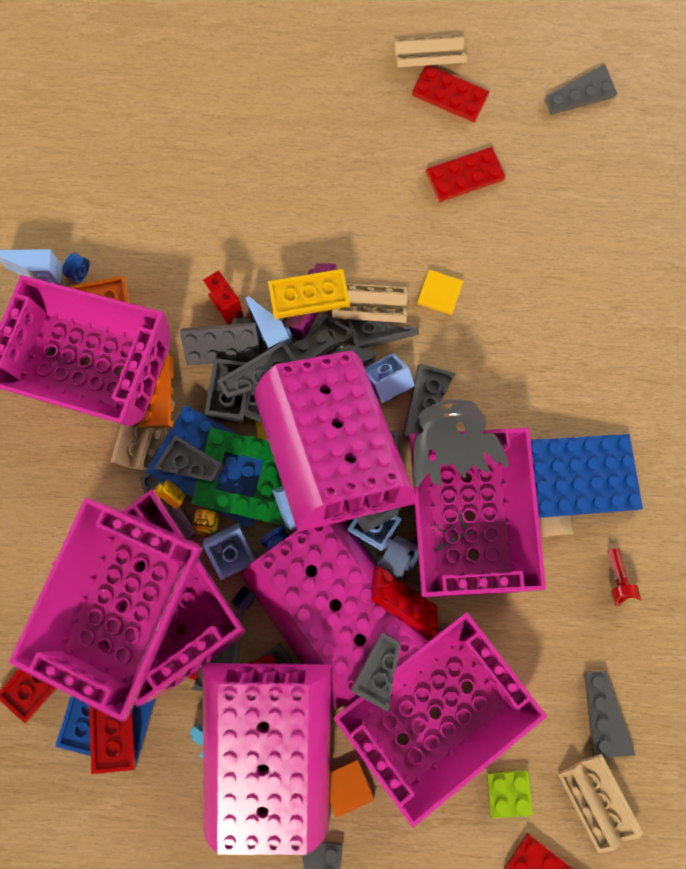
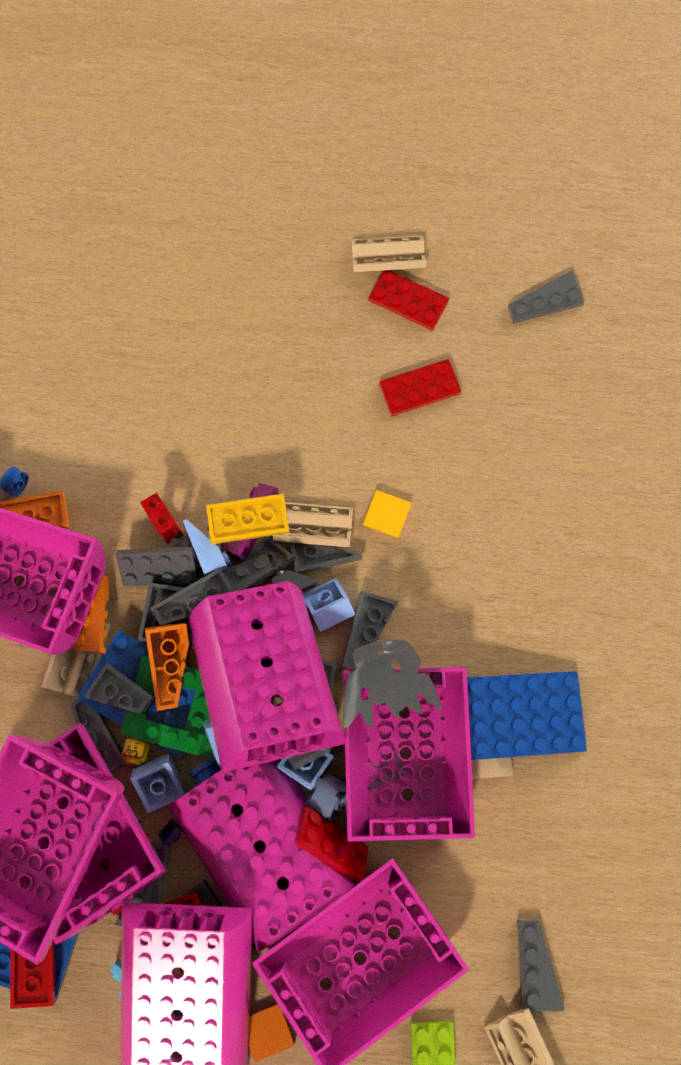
camera: 10 degrees right, 0 degrees up
(170, 494) = (99, 722): yellow bracket -> none
(235, 426) = (167, 659): none -> orange wedge
(377, 673) = (297, 920): dark grey wing -> none
(623, 590) = (561, 837): red piece -> none

